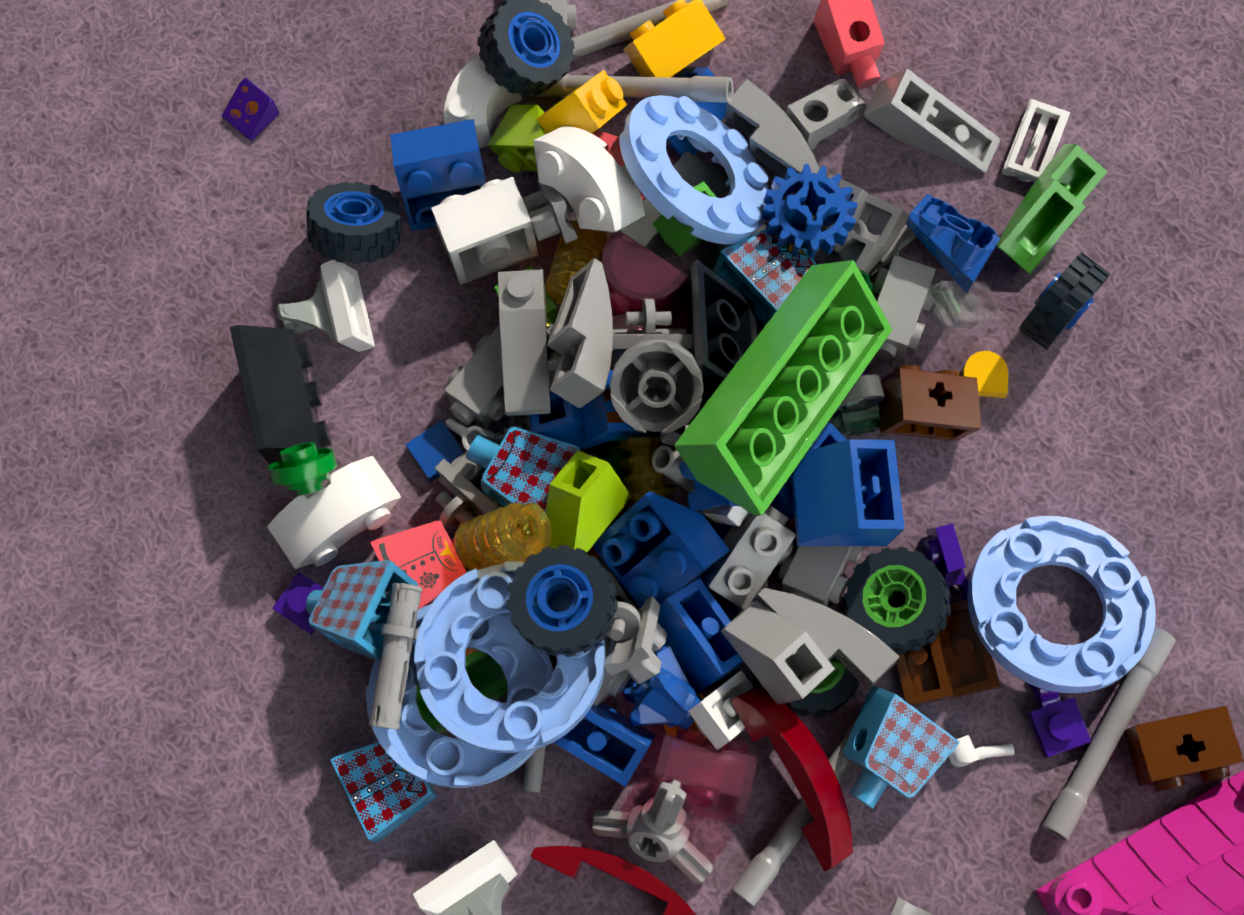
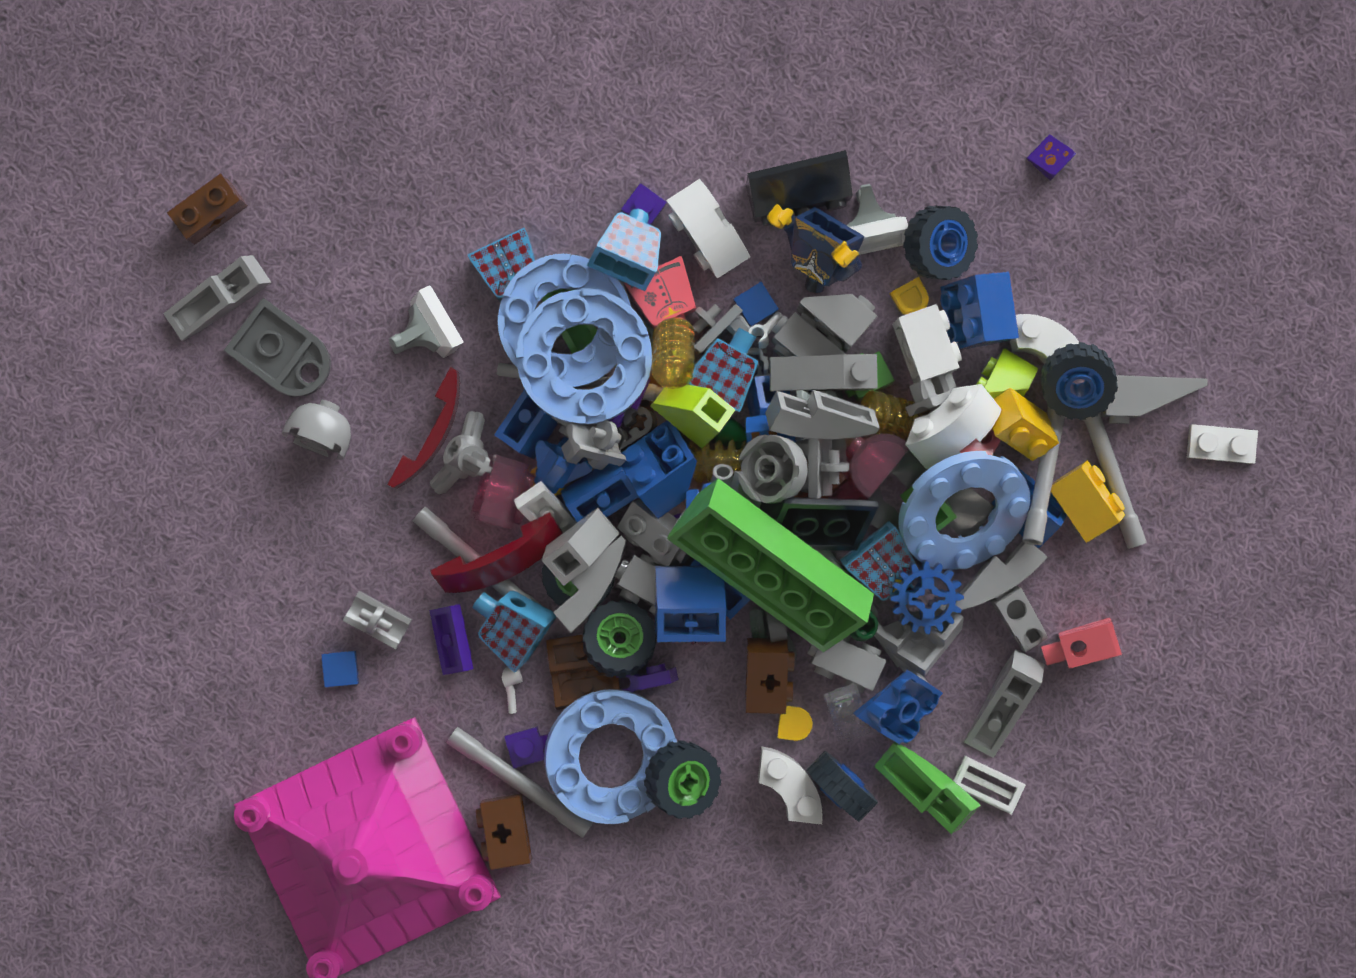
camera: 90 degrees right, 15 degrees up
(303, 468) = (735, 206): green plate -> none
(359, 362) = (819, 246): none -> dark blue torso
(395, 656) = (594, 276): light grey pin -> none
(425, 262) = (910, 297): none -> yellow tile
(450, 331) = (839, 316): none -> light grey slope
(545, 577) = (613, 373): black wheel -> none
(919, 839) = (451, 639): none -> dark purple plate
(1070, 364) = (792, 783): none -> white brick
(1080, 505) = (674, 765): none -> black wheel

